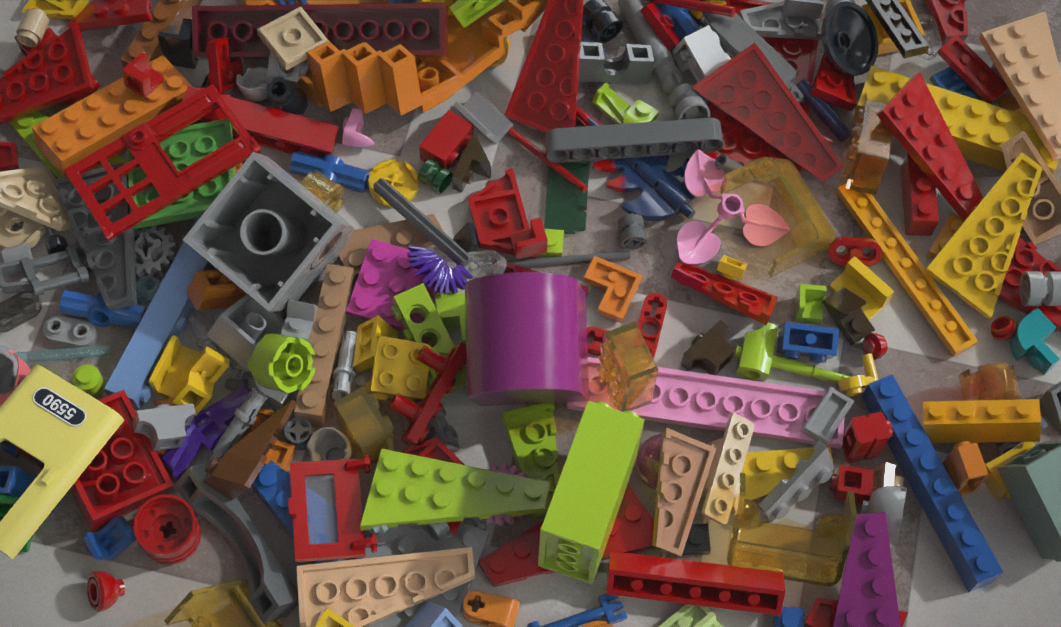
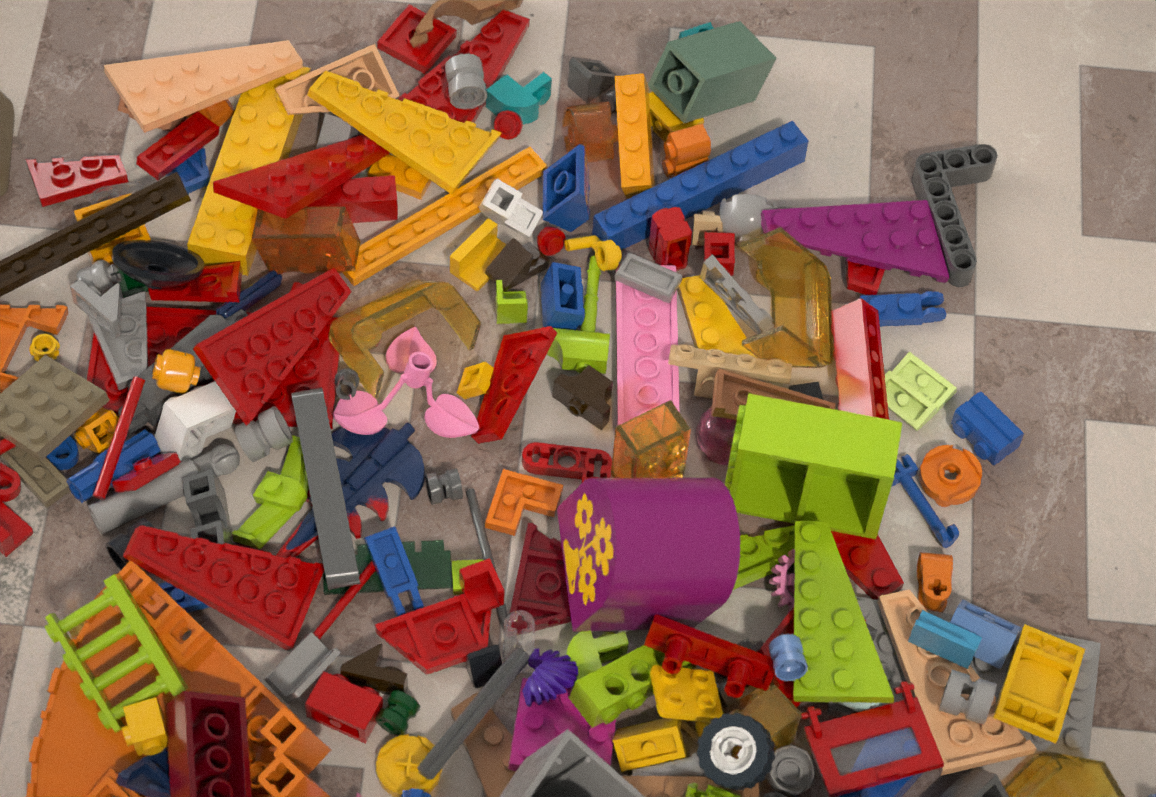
camera: 100 degrees left, 5 degrees down
(332, 386) = (754, 757): none -> black wheel
(351, 593) = (979, 701): none -> light grey wheel
(410, 442) = (788, 657): none -> medium blue wheel
(416, 590) = (944, 639): none -> dark azure panel
(555, 183) = (393, 568): none -> blue hinge
(737, 34) = (175, 371): none -> light orange head
(854, 247) = (434, 259): red plate -> none
(909, 306) = (506, 207): none -> white brick
(923, 362) = (567, 190): none -> blue slope

